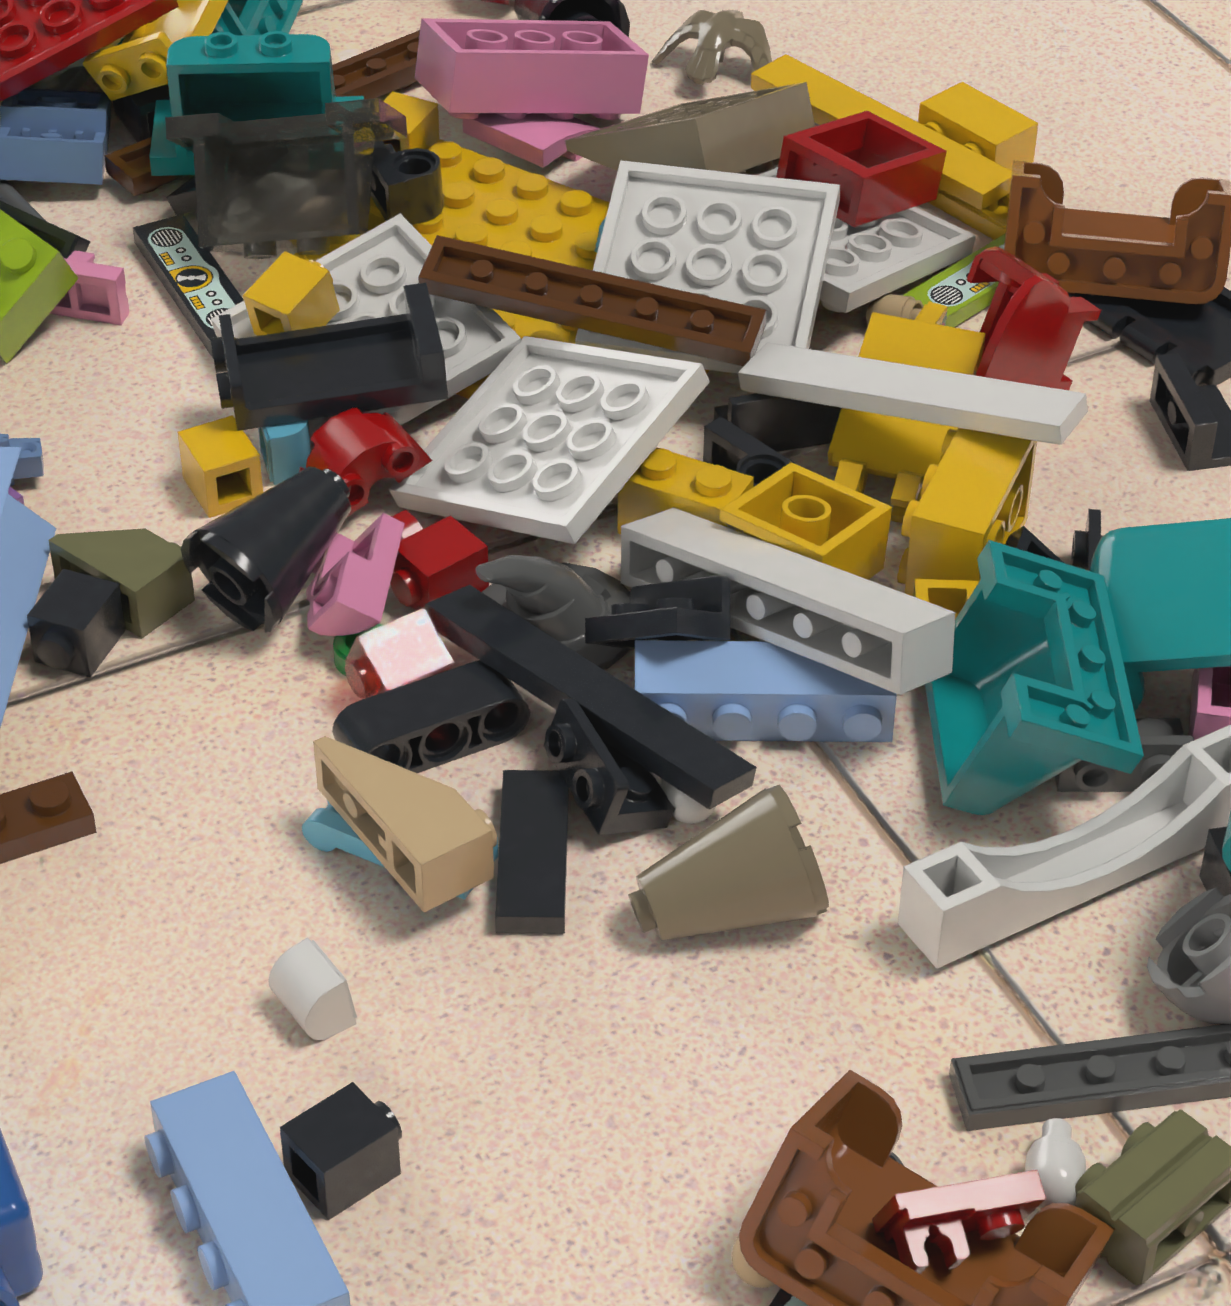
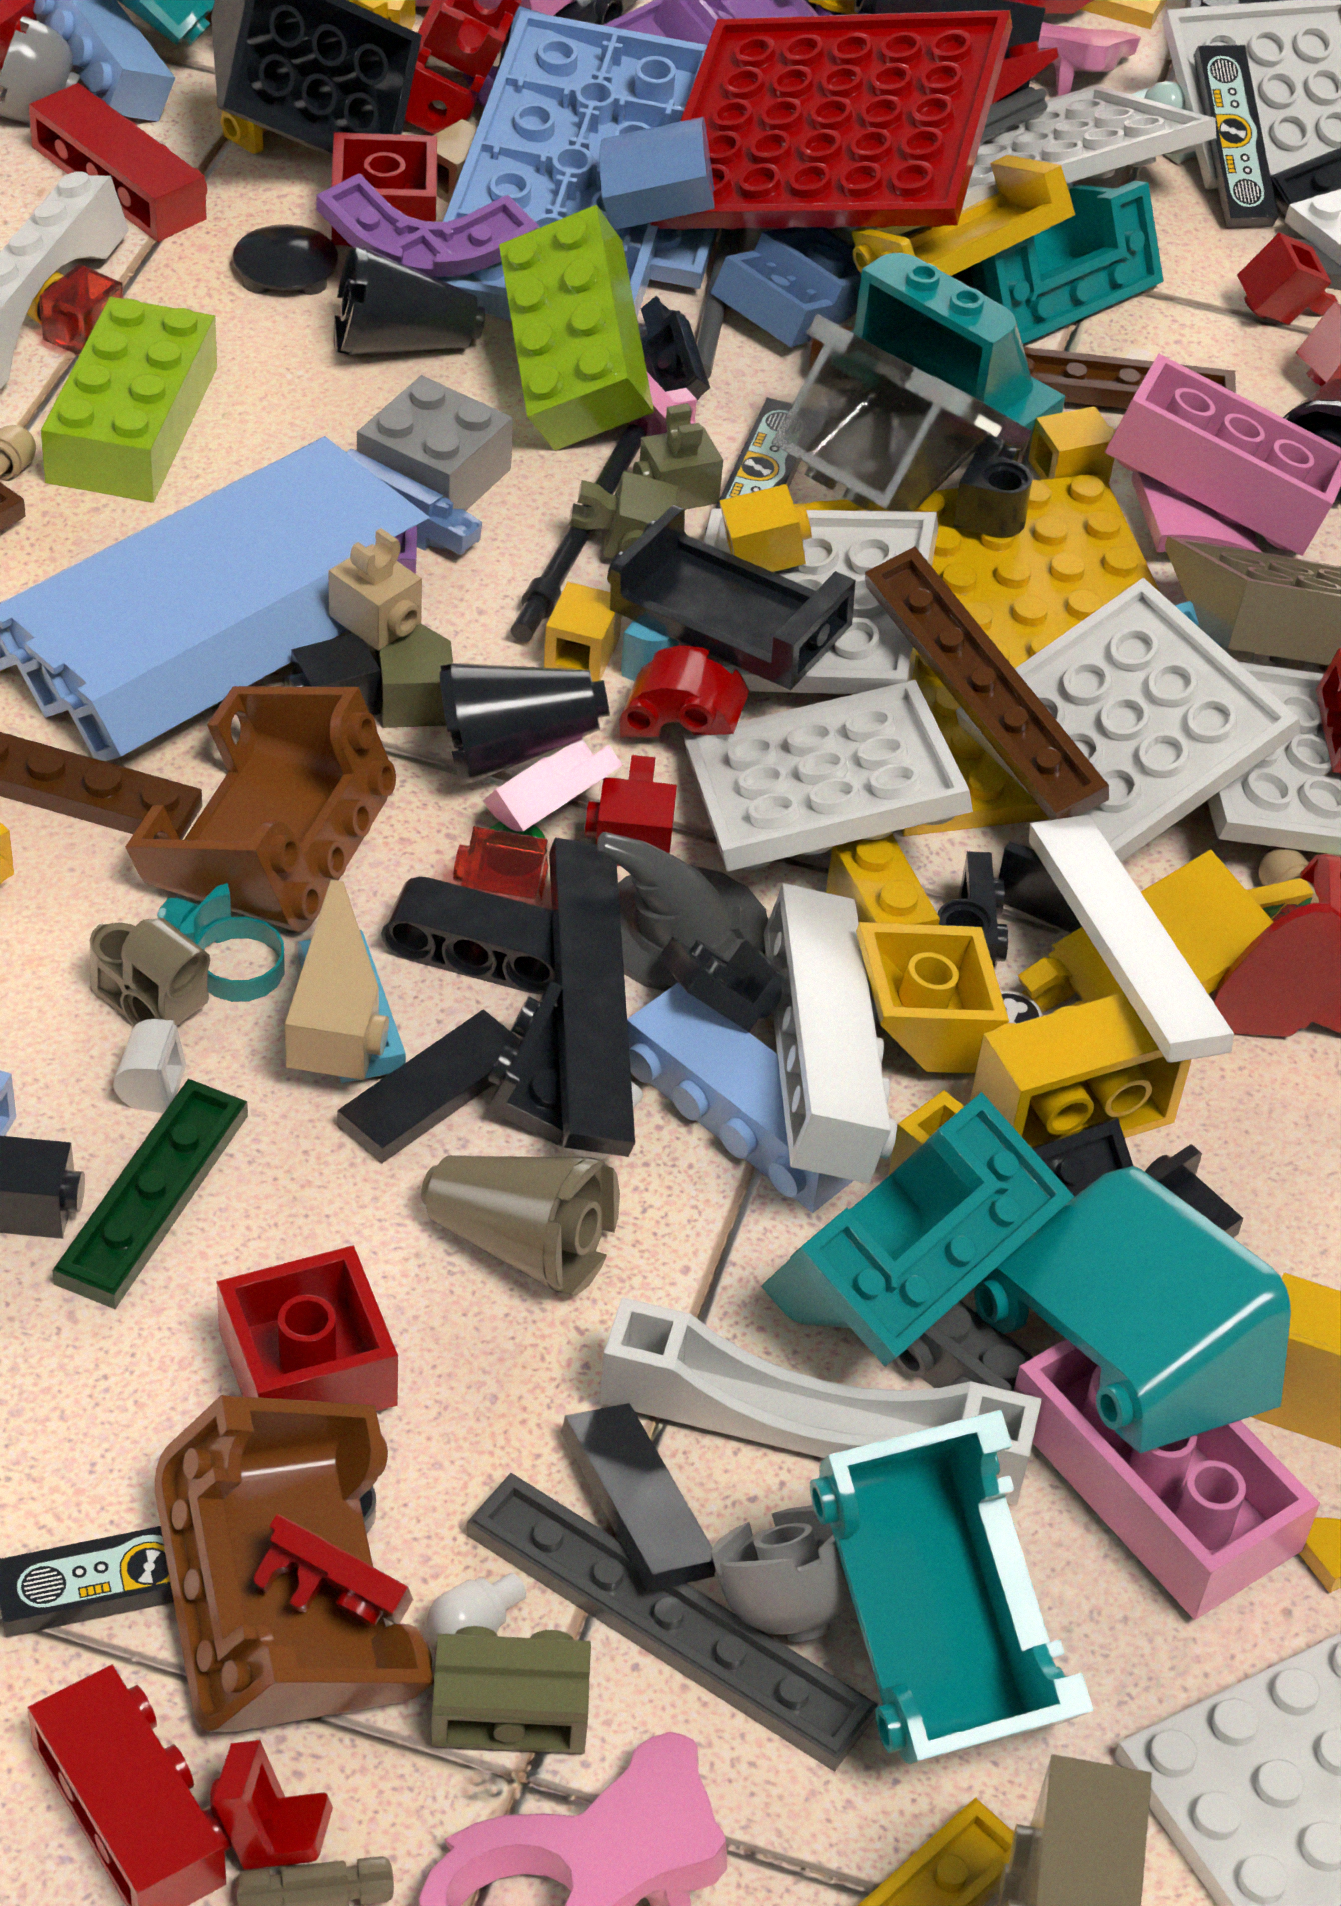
camera: 40 degrees right, 5 degrees up
(61, 522) = (375, 592): none -> tan brick
(139, 308) = (683, 458): none -> olive brick
(144, 459) = (545, 590): none -> black bar
(151, 737) = (287, 811): none -> dark orange windscreen
(155, 363) = (625, 513): none -> olive brick
(197, 870) = (213, 923): none -> teal piece
(230, 932) = (148, 970): none -> dark tan piece
(430, 1087) = (150, 1194): none -> dark green tile
(715, 1082) = (309, 1332): none -> red brick
(1055, 1001) = (639, 1496): none -> tile

